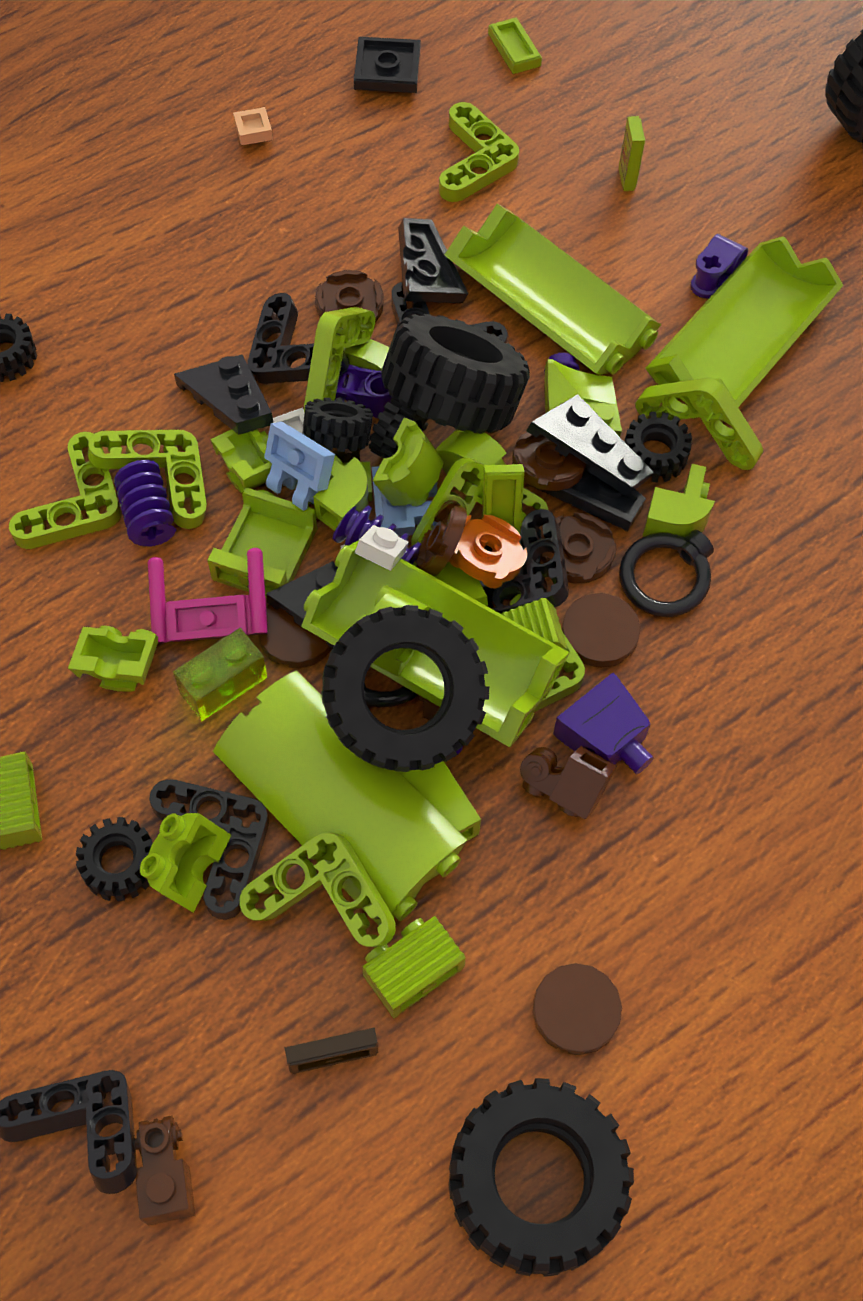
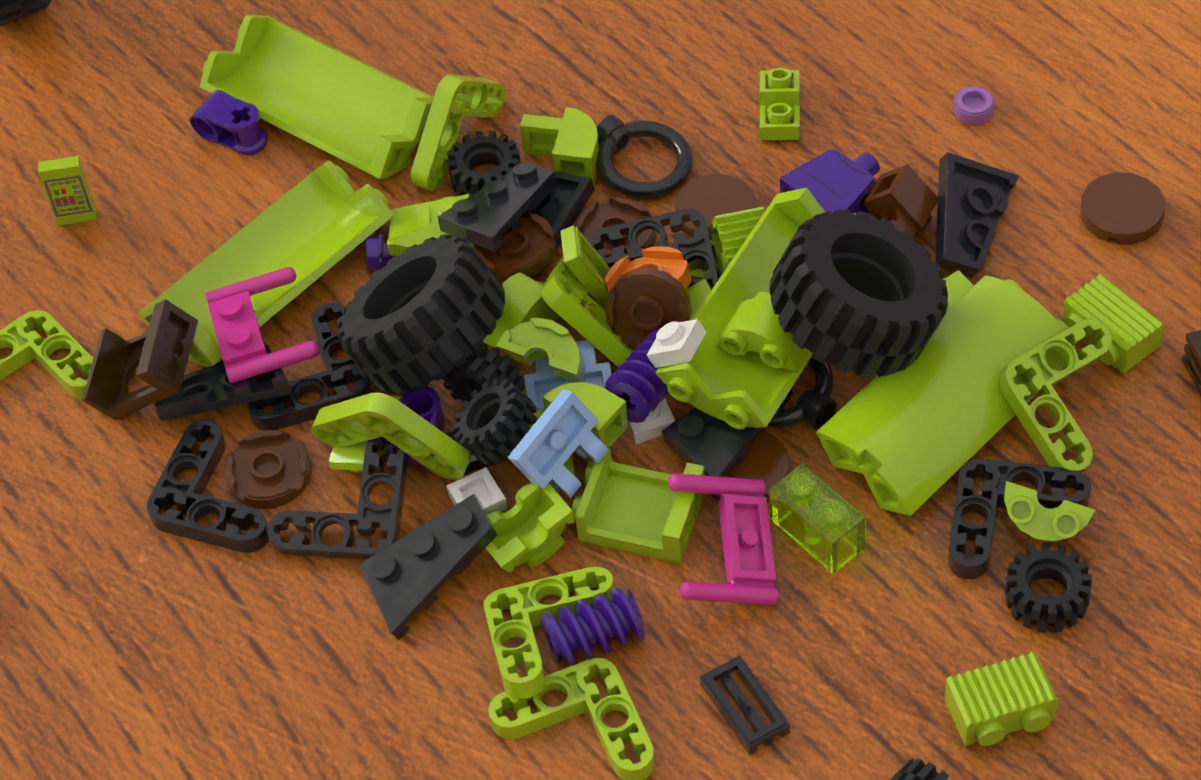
camera: 85 degrees left, 10 degrees down
(61, 617) = (763, 733): none -> black tile
(114, 658) = (808, 617): lime cylinder -> none
(328, 248) = (192, 504): none -> black beam
(454, 200) = (158, 354): none -> dark brown panel
(470, 264) = (239, 329): none -> dark pink plate
(573, 848) = (968, 210): none -> black wing
(730, 880) = (973, 105): none -> medium lavender tile
(737, 697) = (779, 104): none -> lime slope

